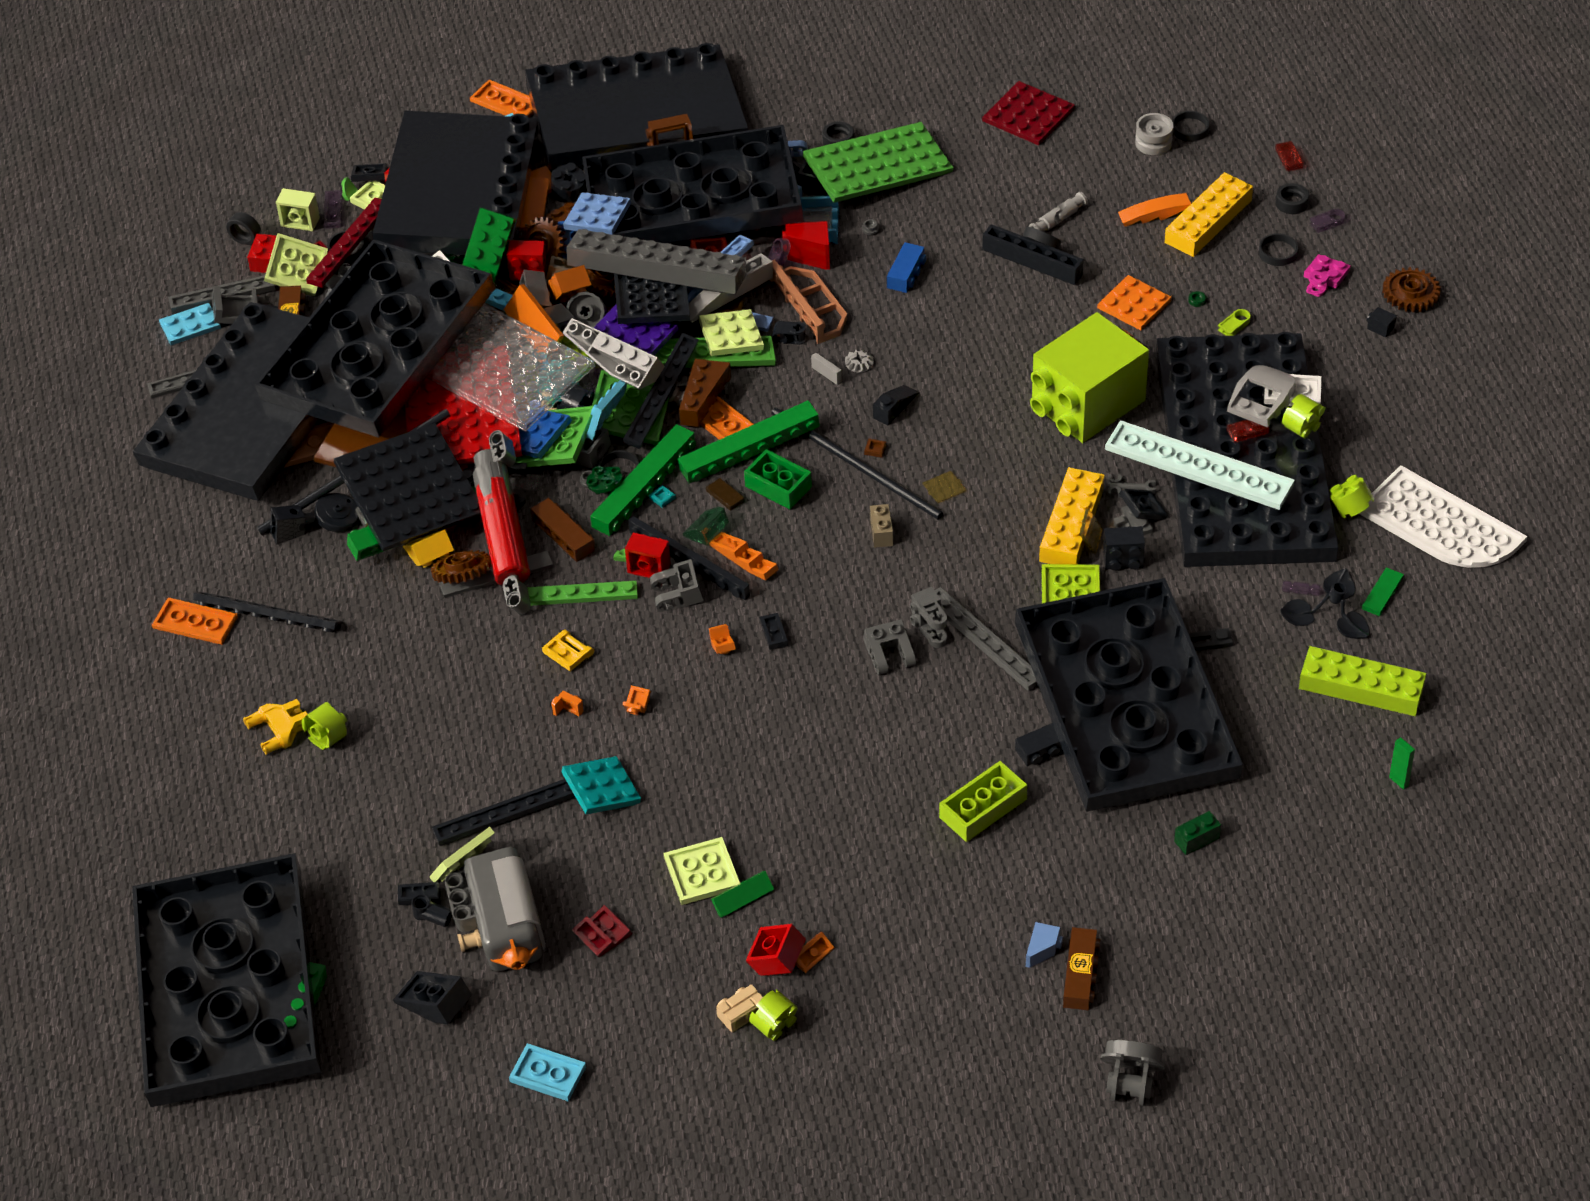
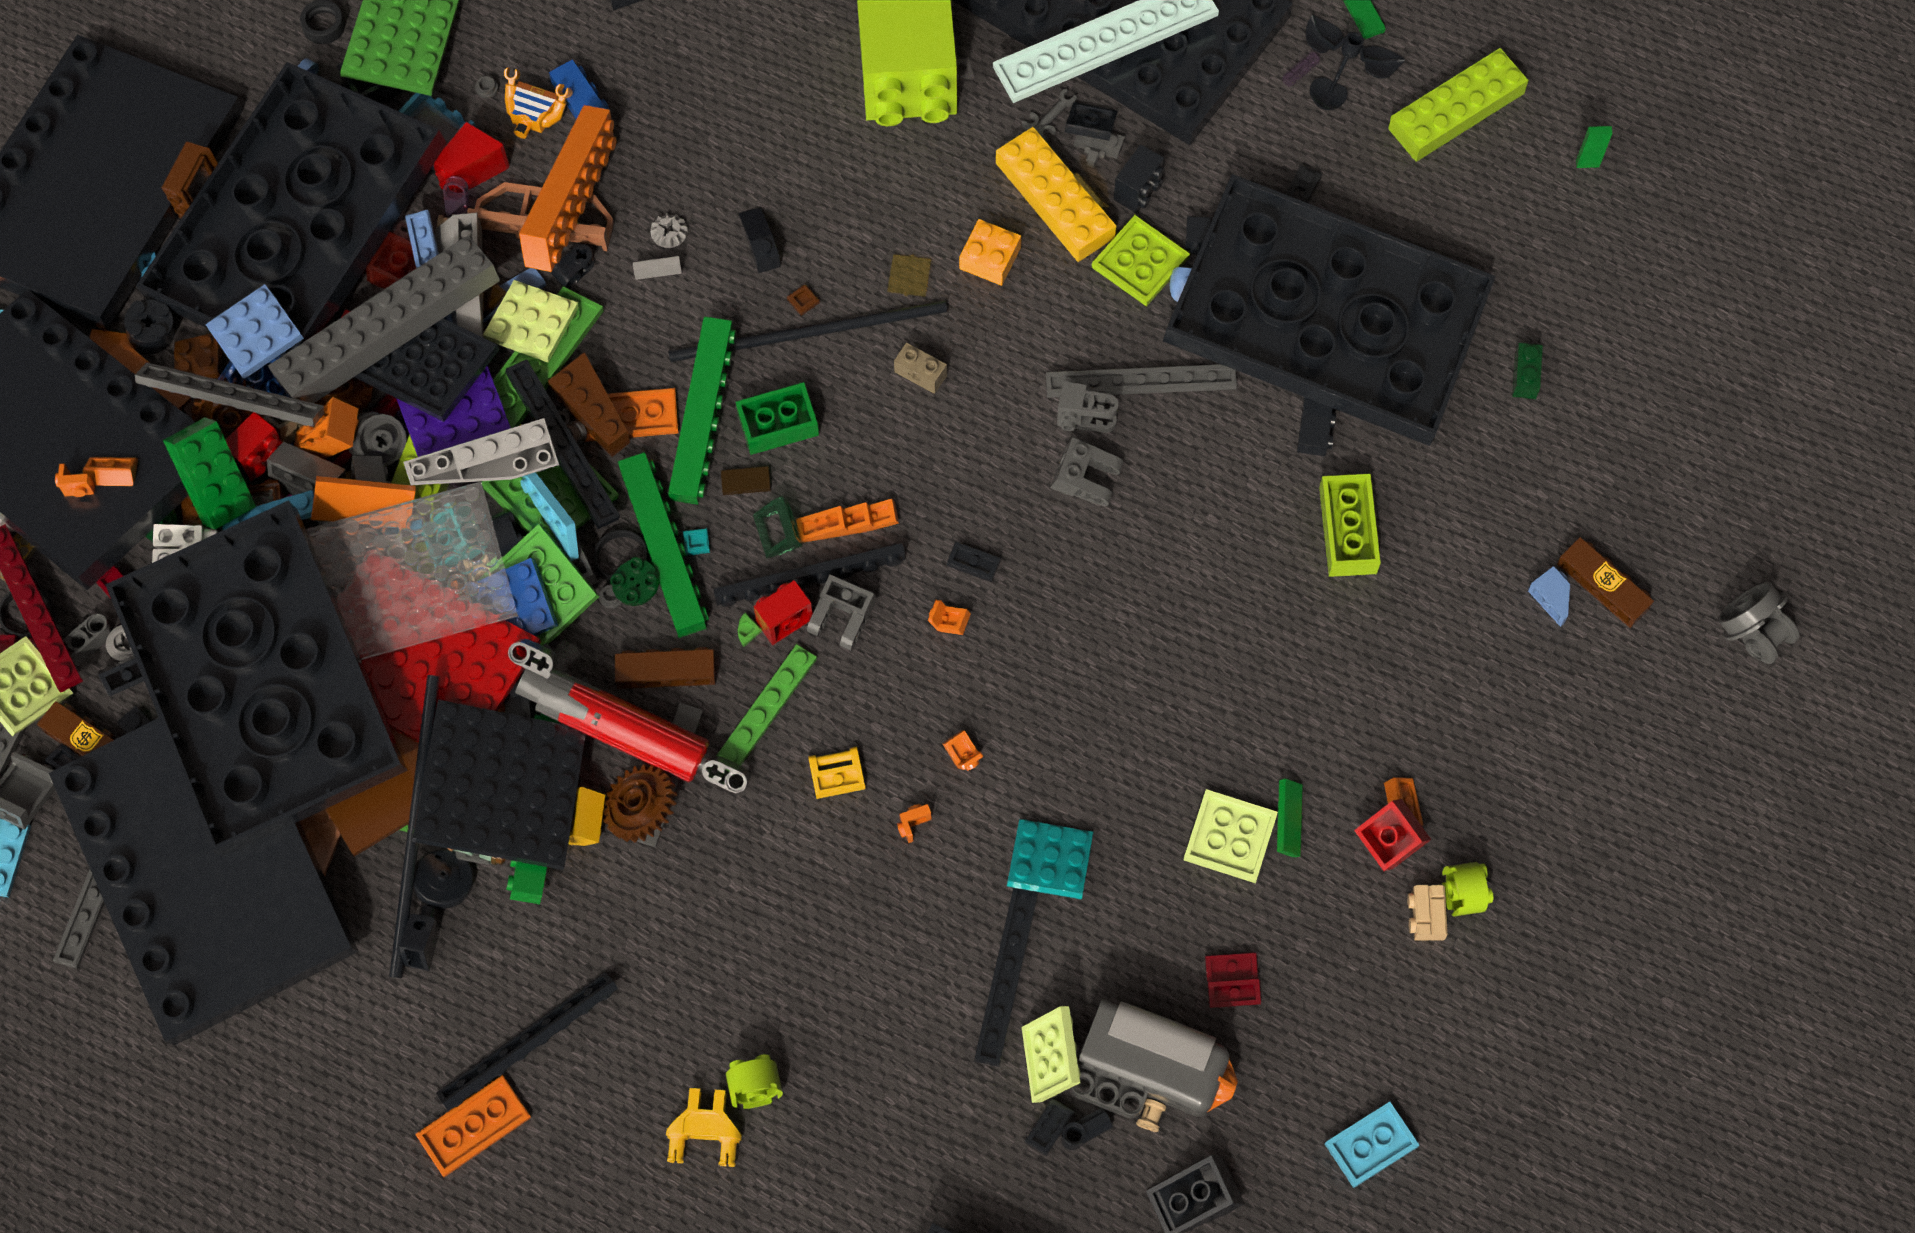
camera: 55 degrees left, 20 degrees up
(427, 196) = (73, 485): none -> orange bracket
(450, 208) = (111, 471): none -> orange slope
(544, 224) = (229, 394): none -> dark grey plate
(828, 287) = (567, 188): none -> orange brick
(876, 250) = (532, 106): none -> torso
(997, 511) = (990, 252): none -> light orange brick

